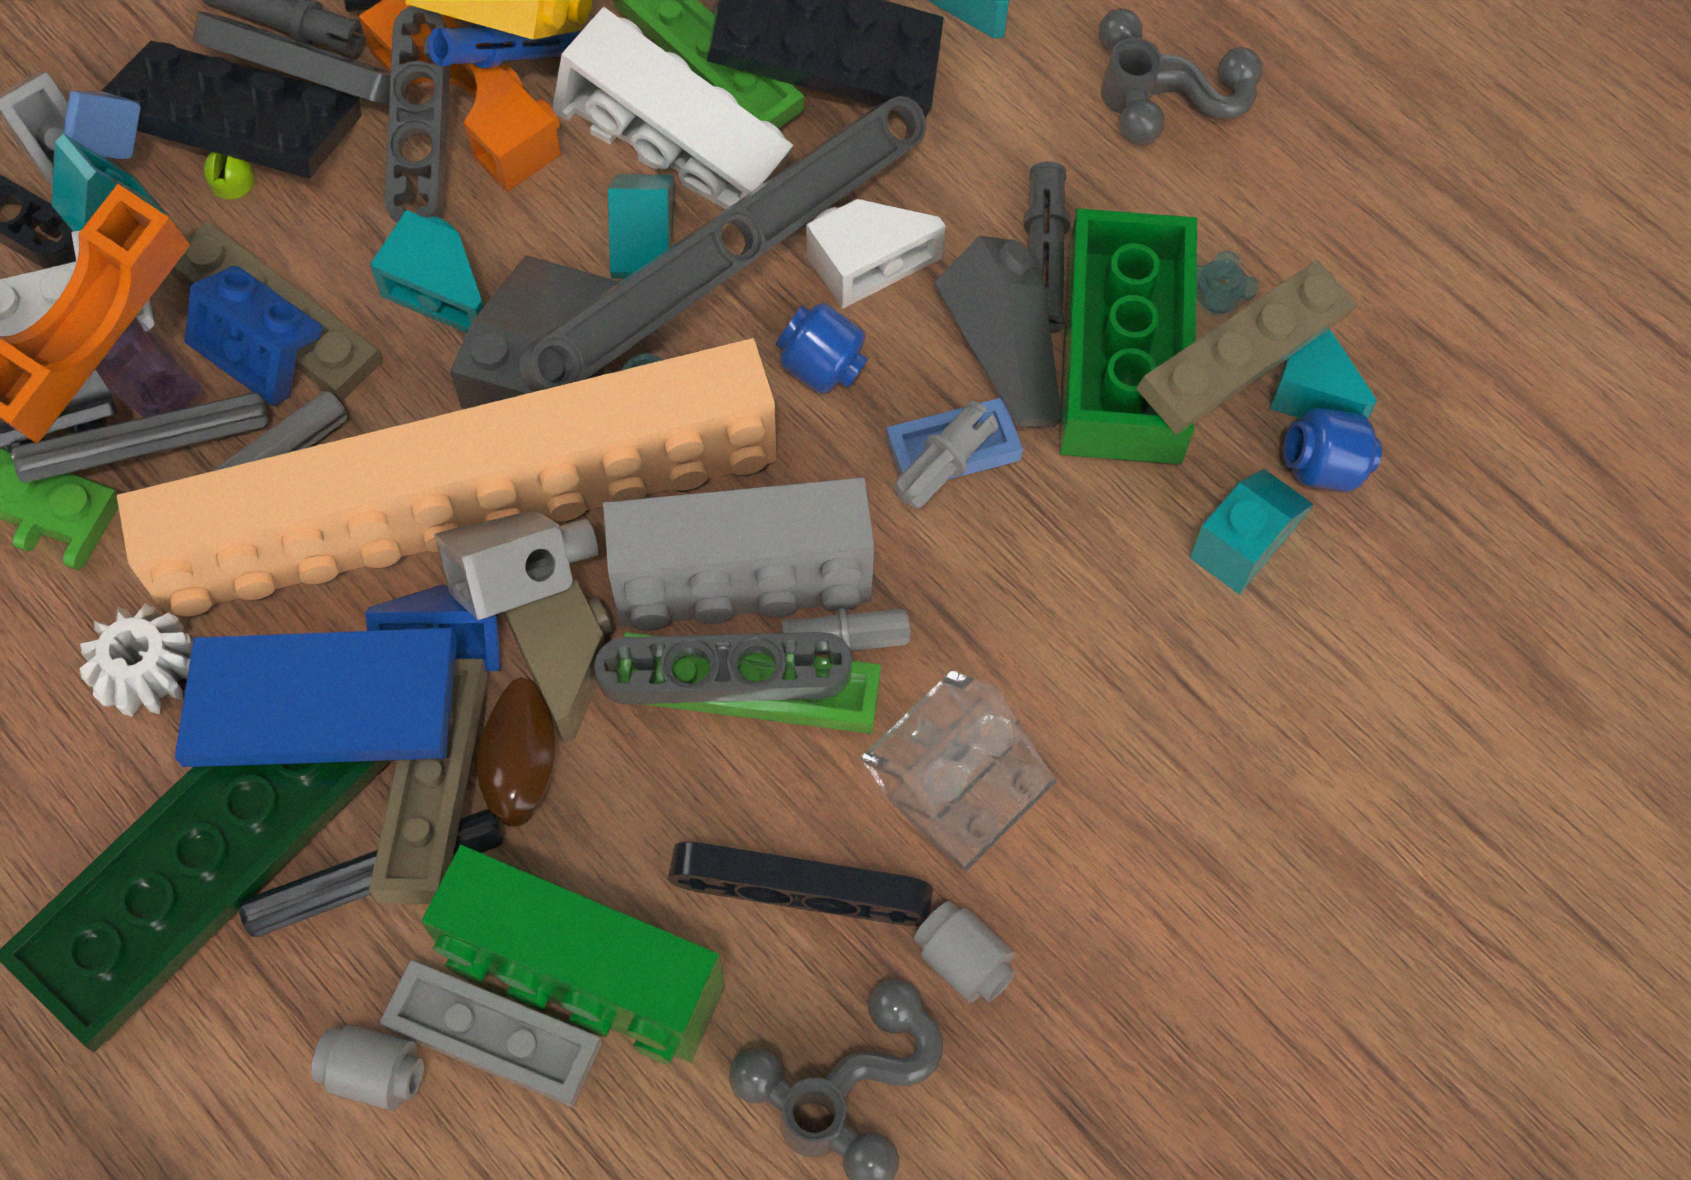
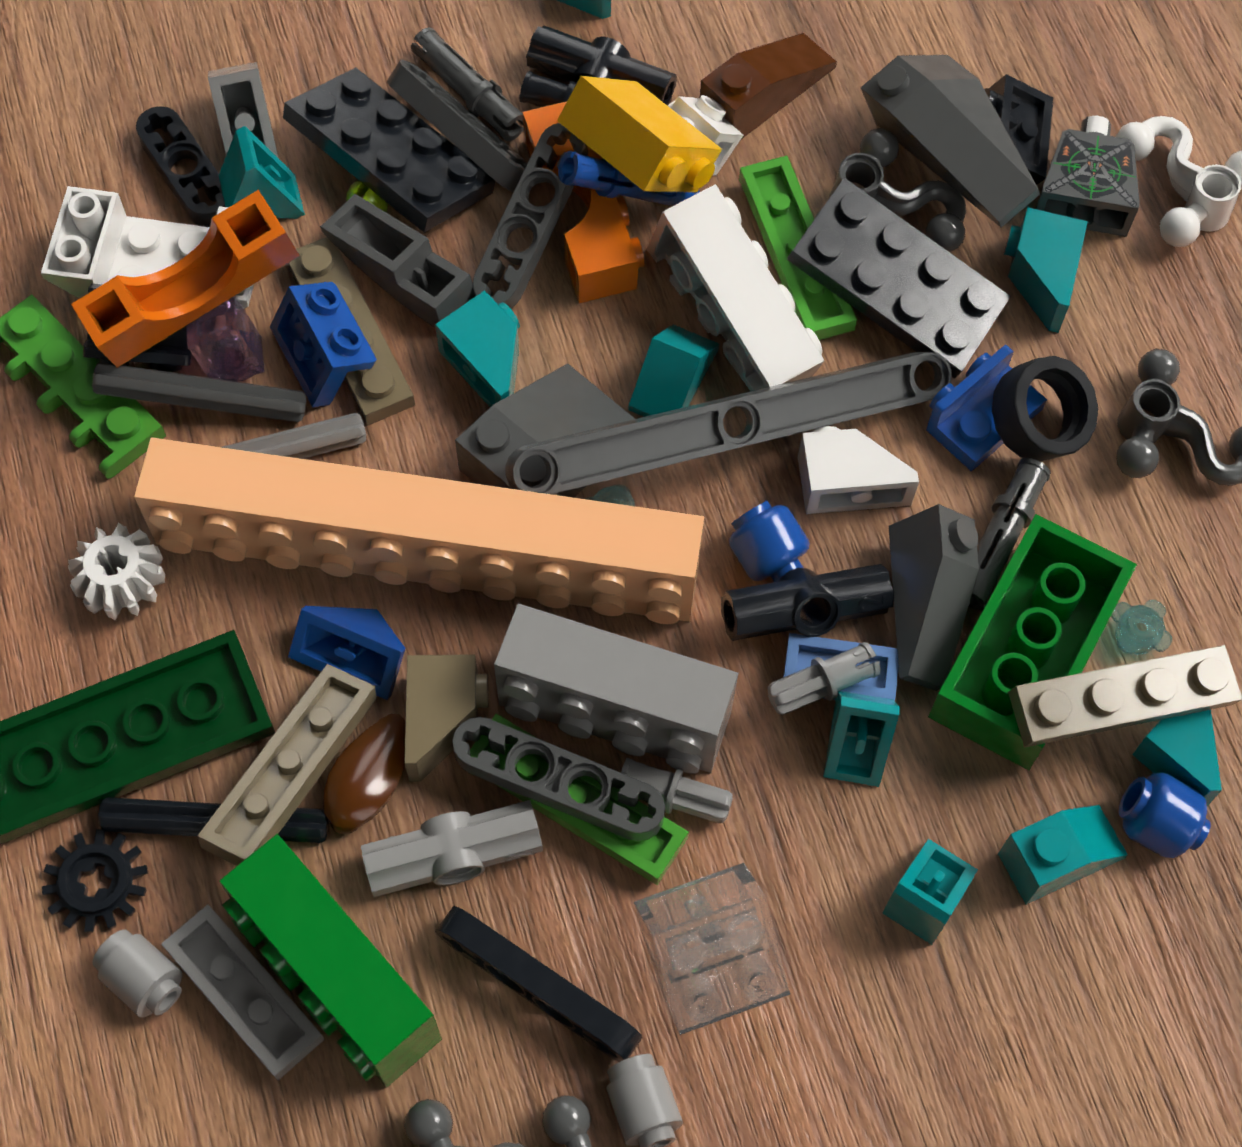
camera: 25 degrees right, 0 degrees up
(103, 122) = (282, 125): medium blue slope -> none
(249, 978) = (85, 861): none -> black gear
(295, 218) = (398, 260): none -> dark grey slope
(317, 698) = (234, 663): blue tile -> none
(512, 560) = (432, 617): light grey torso -> none
(644, 788) = (451, 848): none -> light grey piece
(888, 390) = (832, 598): none -> black piece
(969, 136) = (963, 413): none -> blue bracket
(1008, 499) = (860, 738): none -> teal slope
(1055, 88) = (1077, 403): none -> black tyre
(1146, 622) = (929, 891): none -> teal slope

